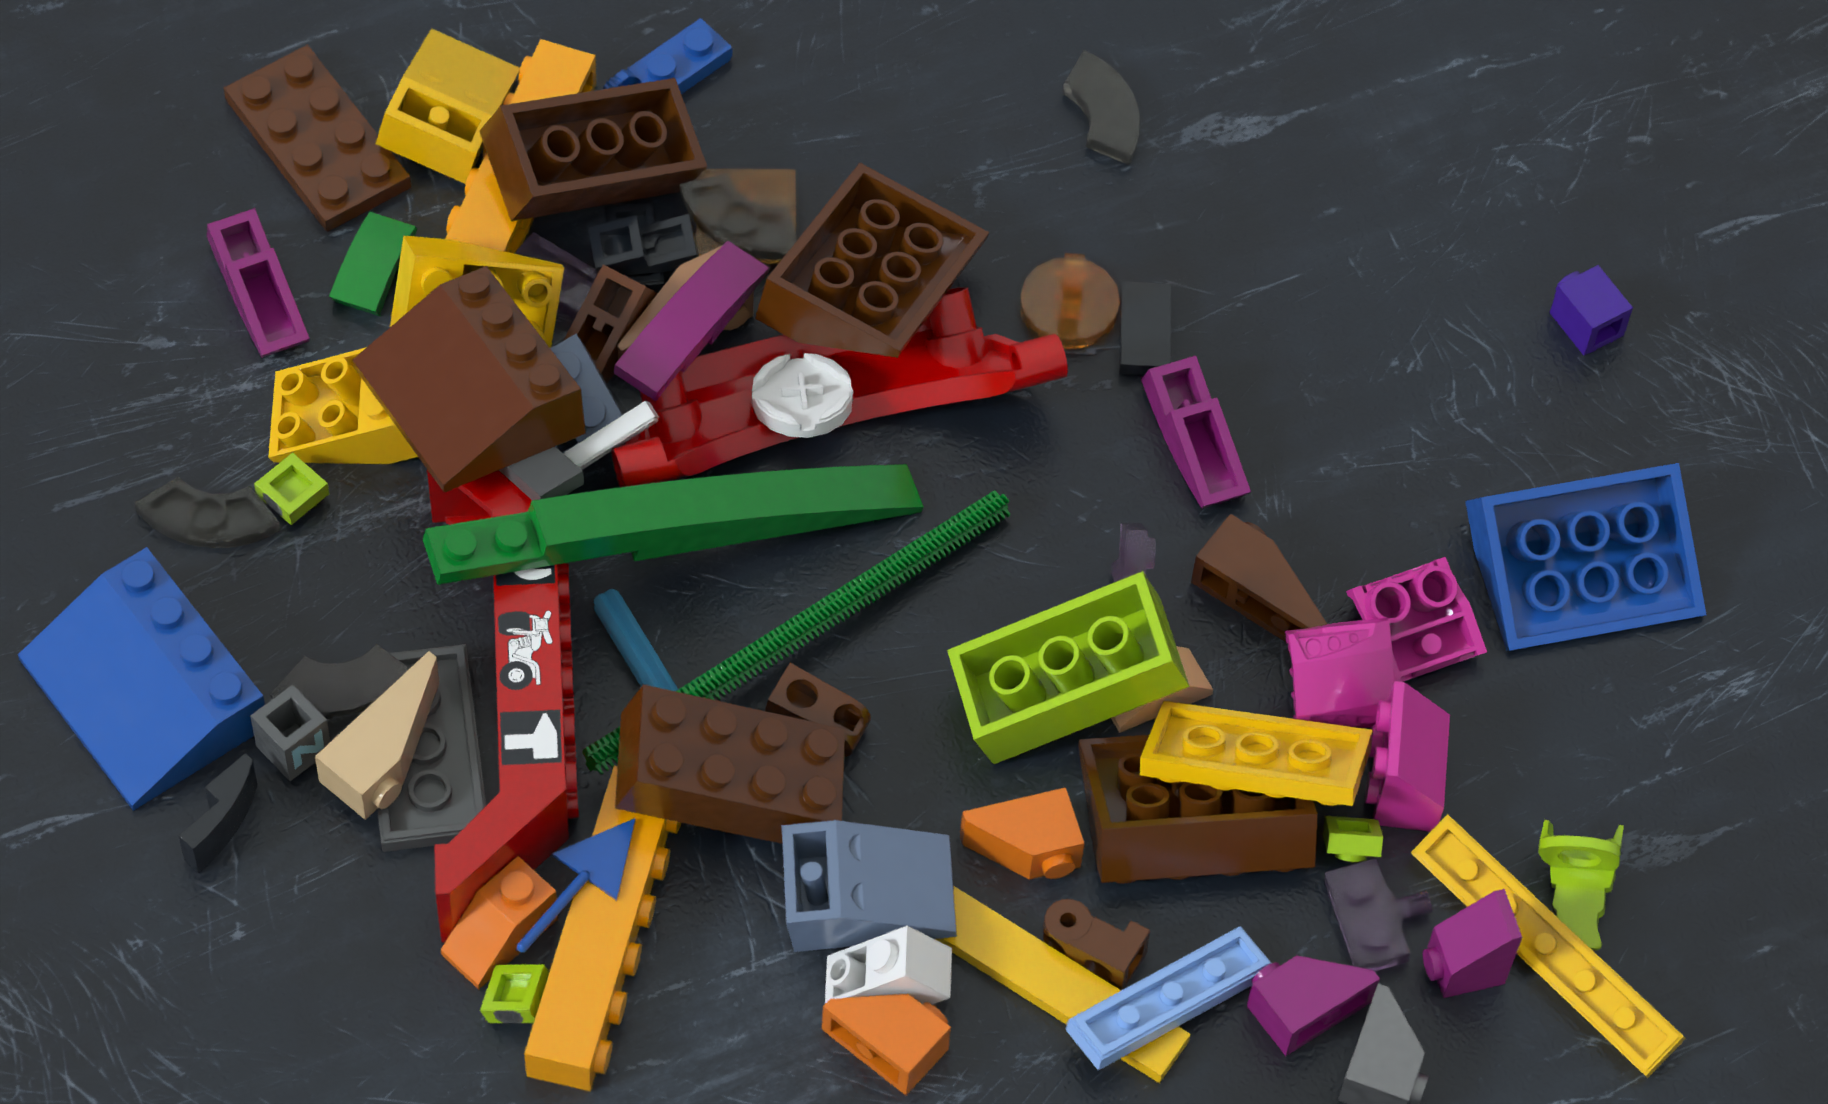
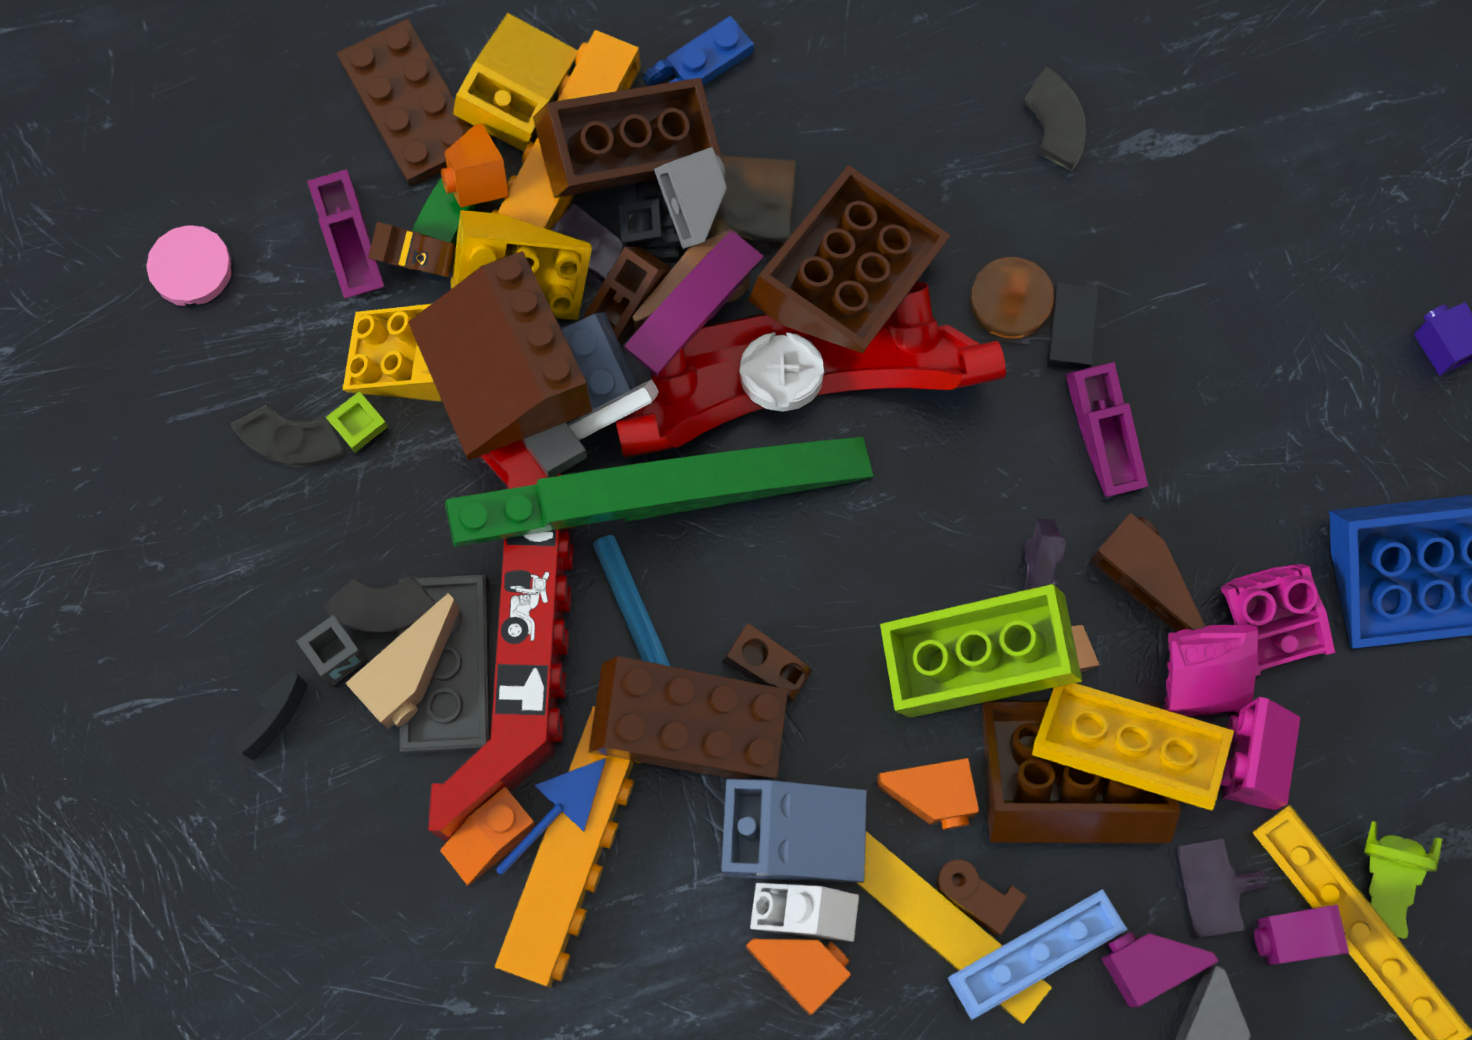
camera: 10 degrees right, 15 degrees up
(65, 333) = (189, 265): none -> bright pink tile
(143, 680) = (220, 587): blue slope -> none
(343, 293) = (411, 250): none -> reddish brown leg
(413, 196) = (474, 169): none -> orange slope
(514, 993) = (494, 900): lime plate -> none
(677, 201) = (693, 193): none -> light grey slope
(827, 610) = (773, 577): green axle -> none
(1352, 838) = (1207, 823): lime plate -> none

